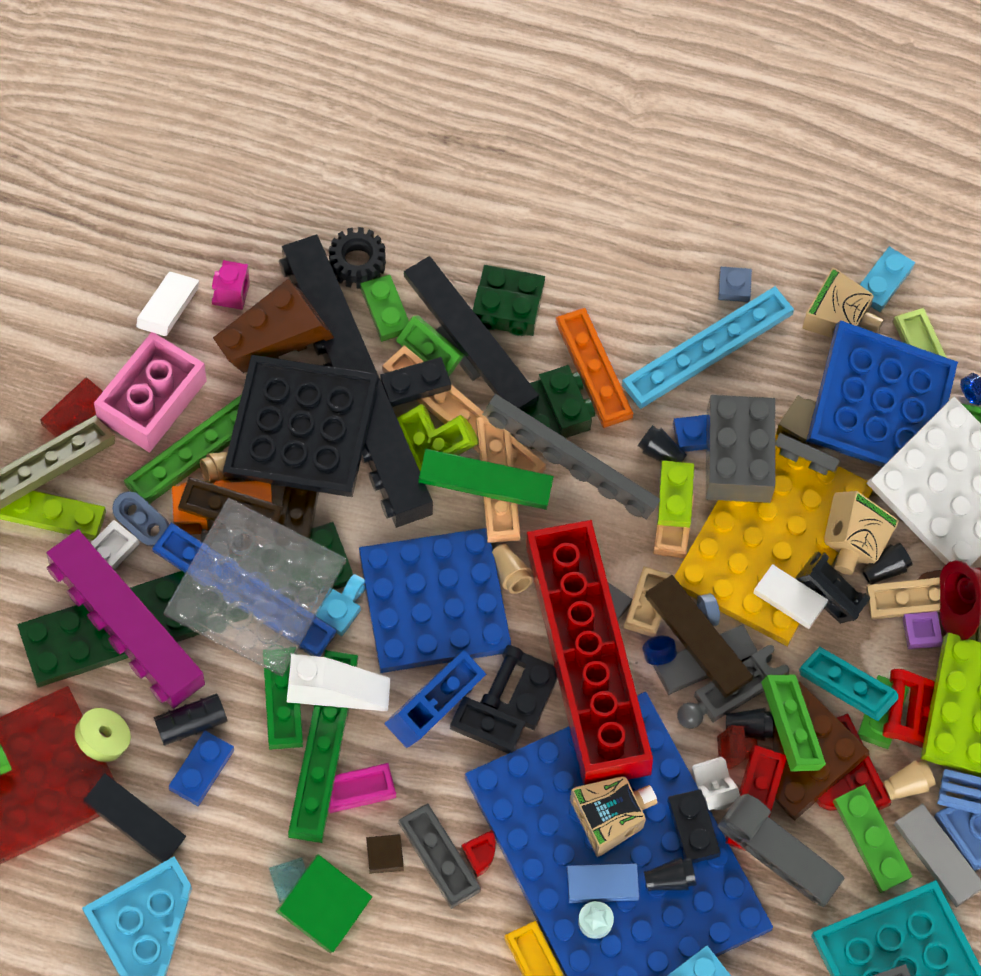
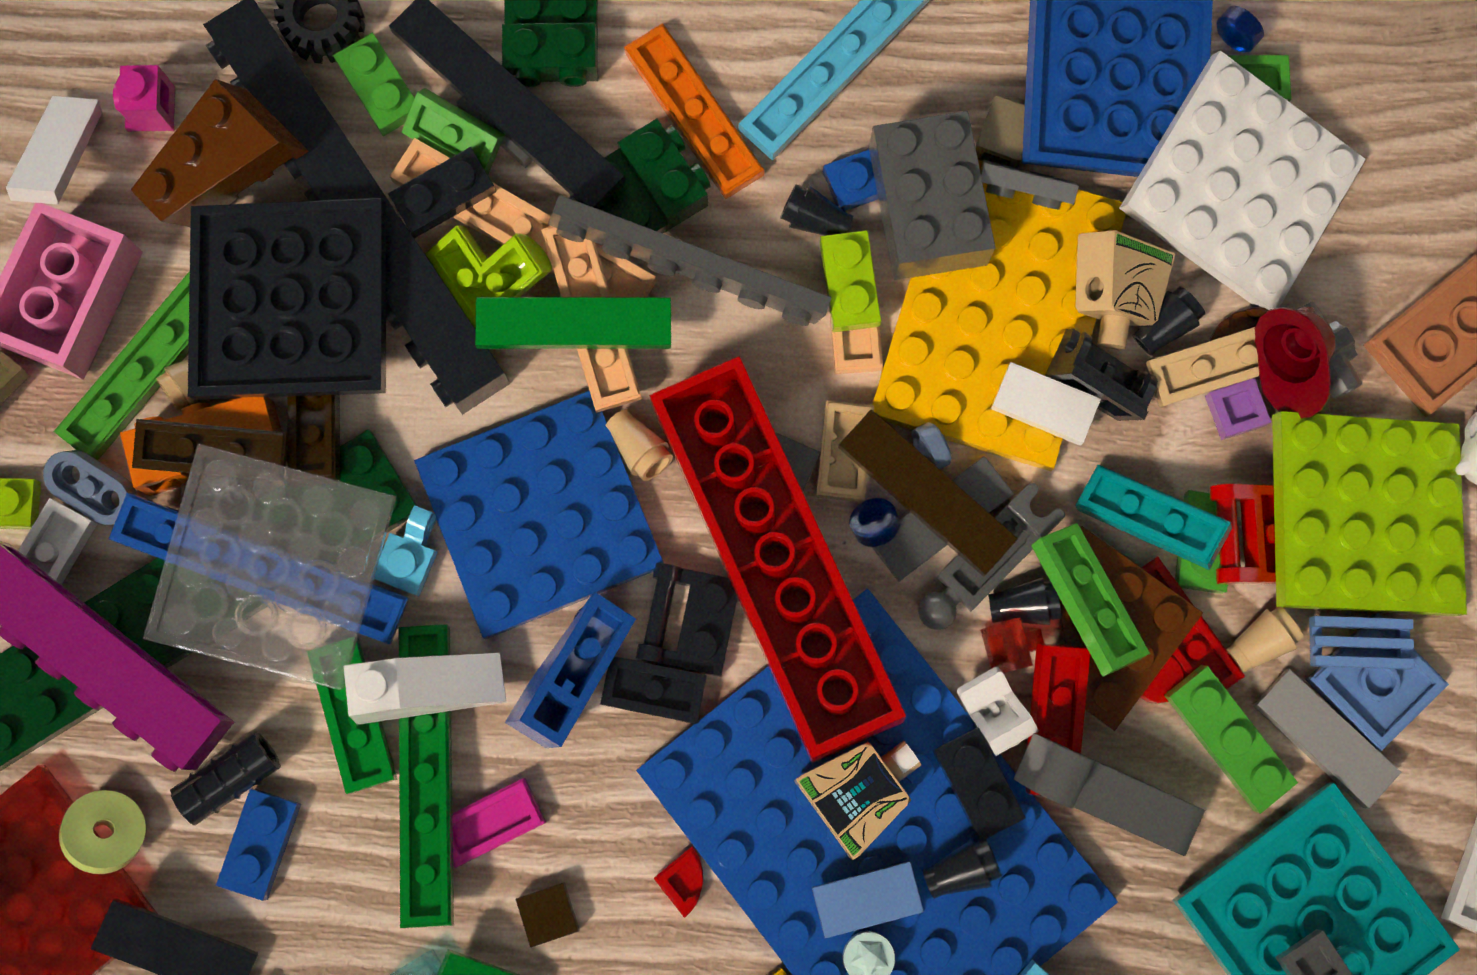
camera: 10 degrees left, 15 degrees up
(439, 856) = (625, 899): dark grey tile -> none

